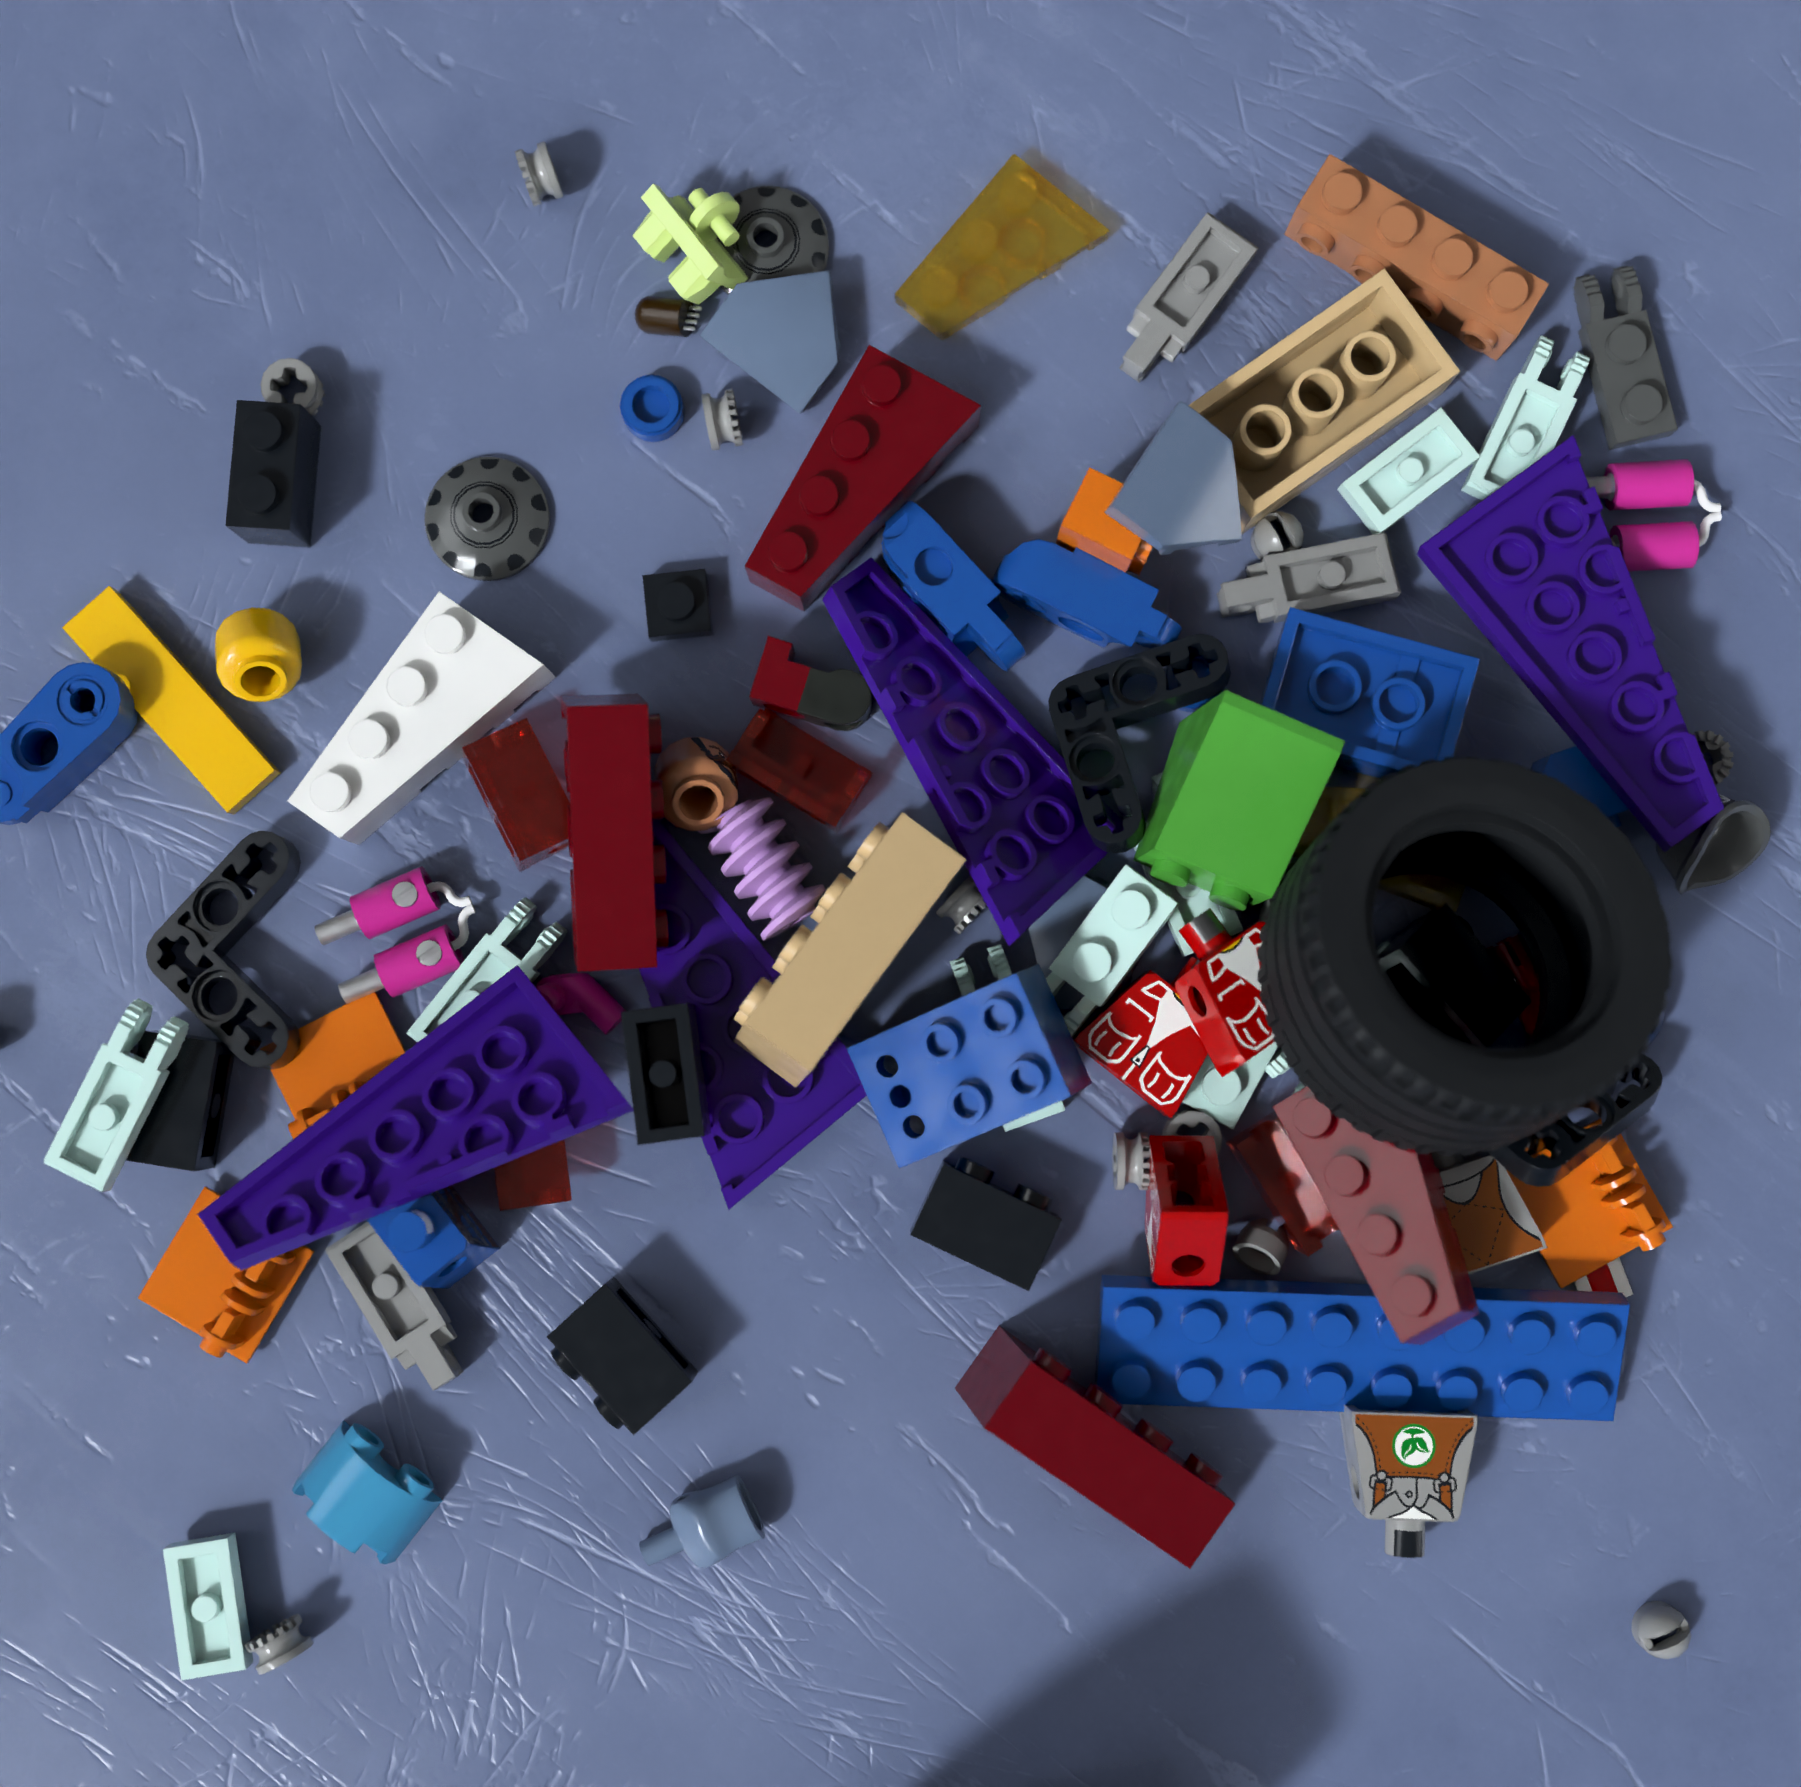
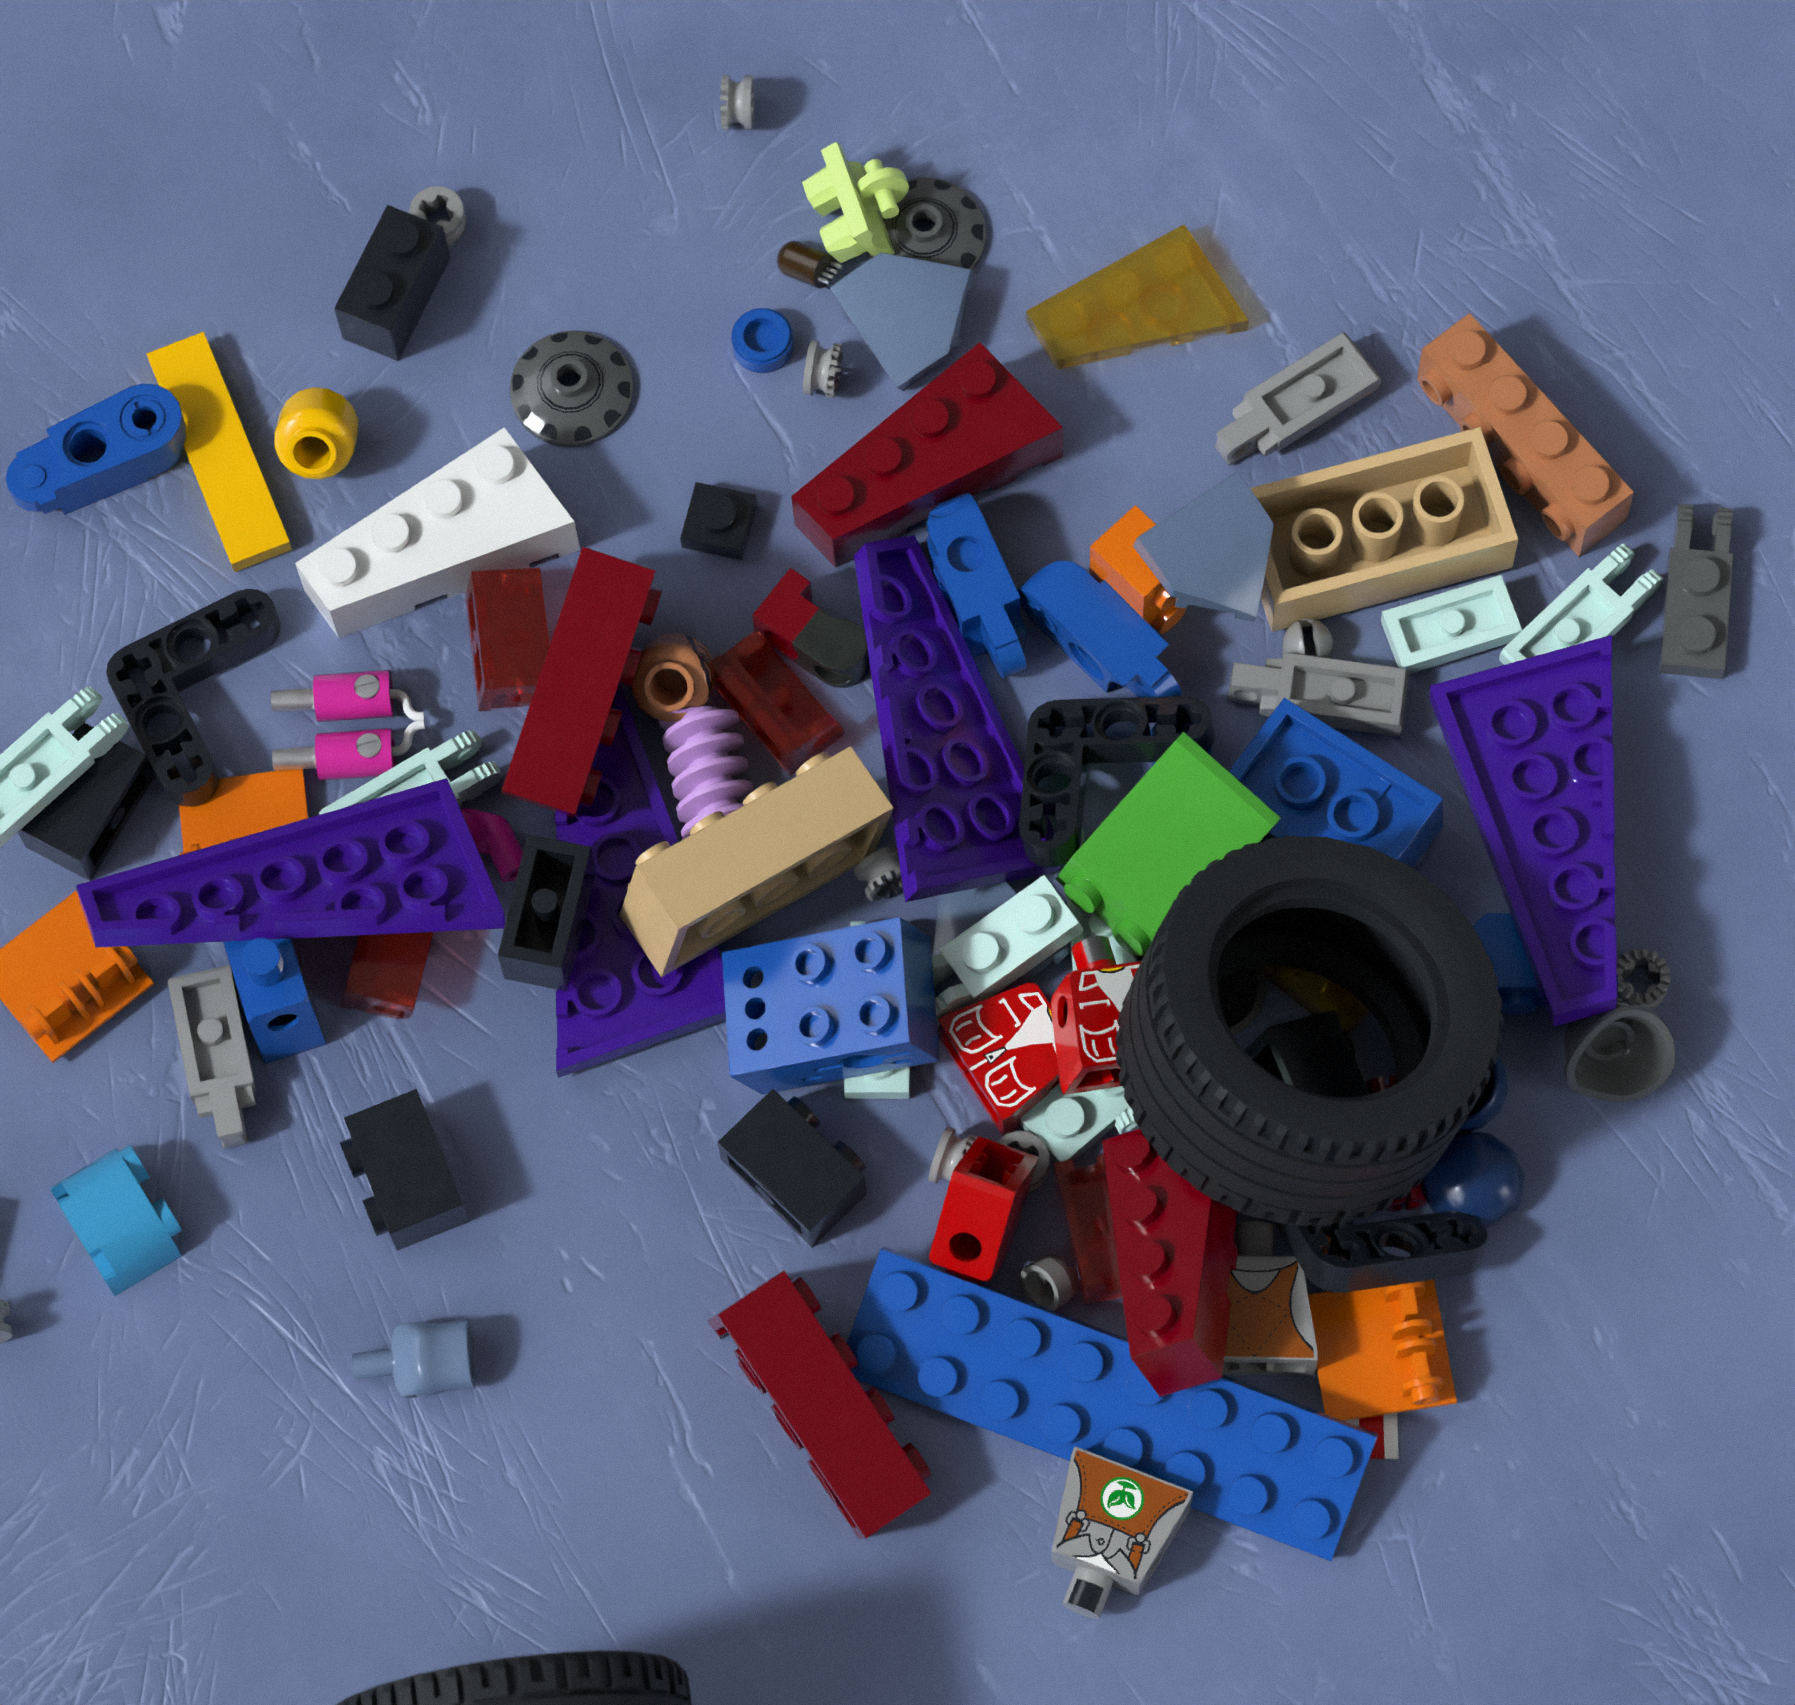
camera: 20 degrees right, 15 degrees down
(1655, 486) = (1677, 713): dark pink piece -> none

